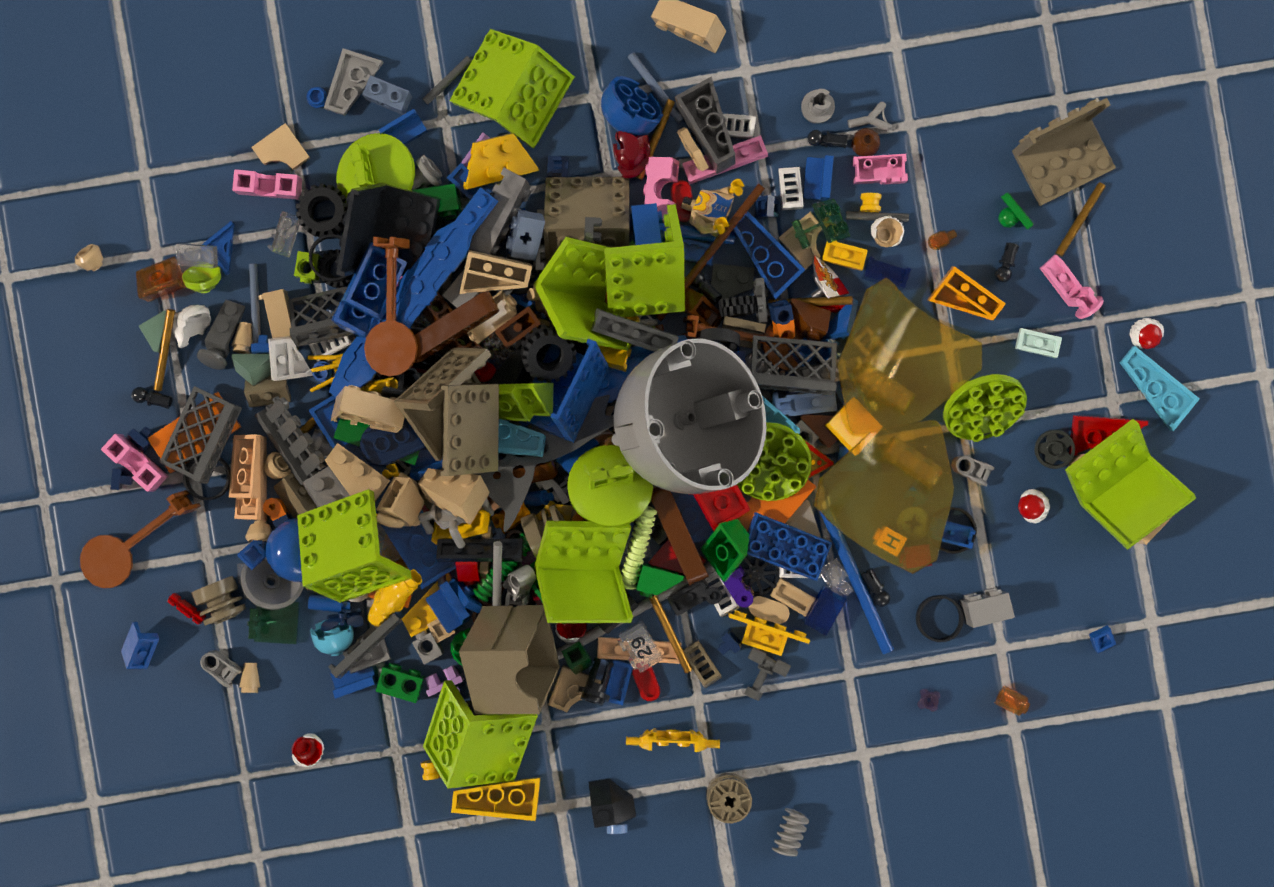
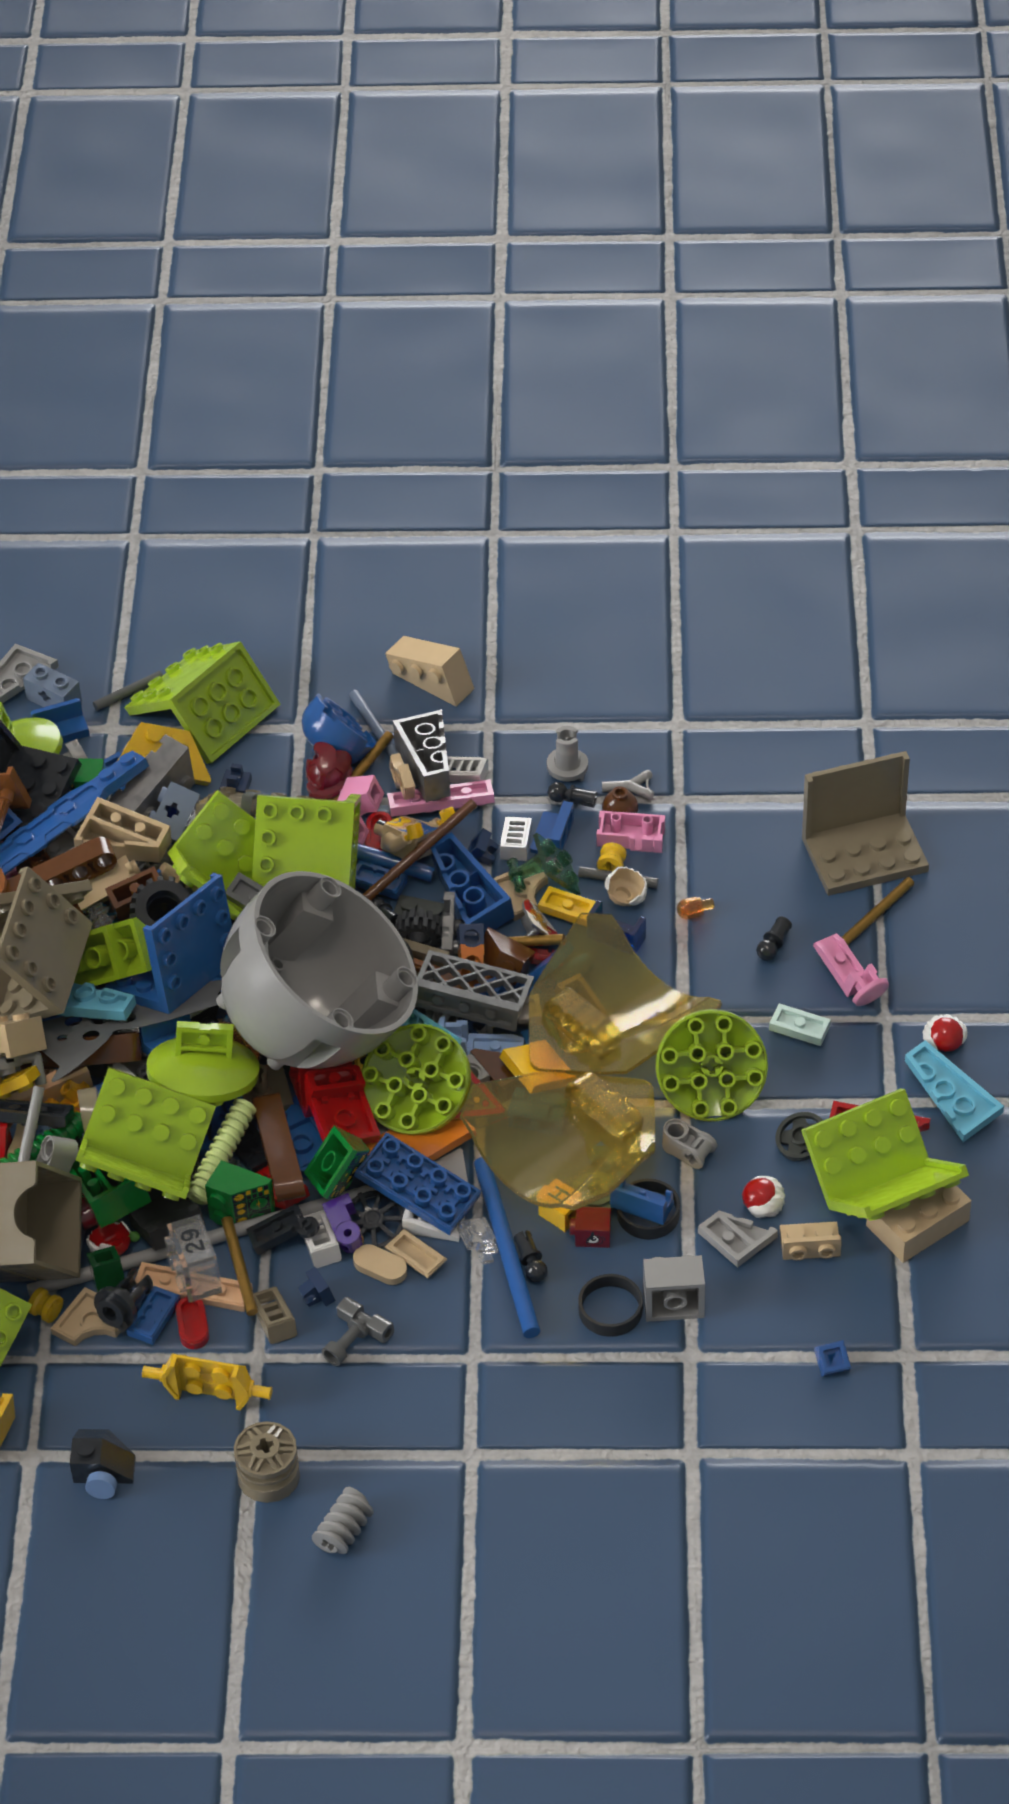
camera: 15 degrees right, 40 degrees down
(764, 636) = (369, 1284): yellow bracket -> none
(824, 610) = (451, 1268): clear blue panel -> none
(932, 705) = (576, 1390): clear purple plate -> none
(966, 295) = (712, 959): light orange wedge -> none
(1012, 701) = (692, 1411): clear orange brick -> none
(1013, 213) = (790, 891): green tile -> none
(1019, 546) = (735, 1236): none -> light grey wing
(1072, 538) = (810, 1240): none -> tan bracket

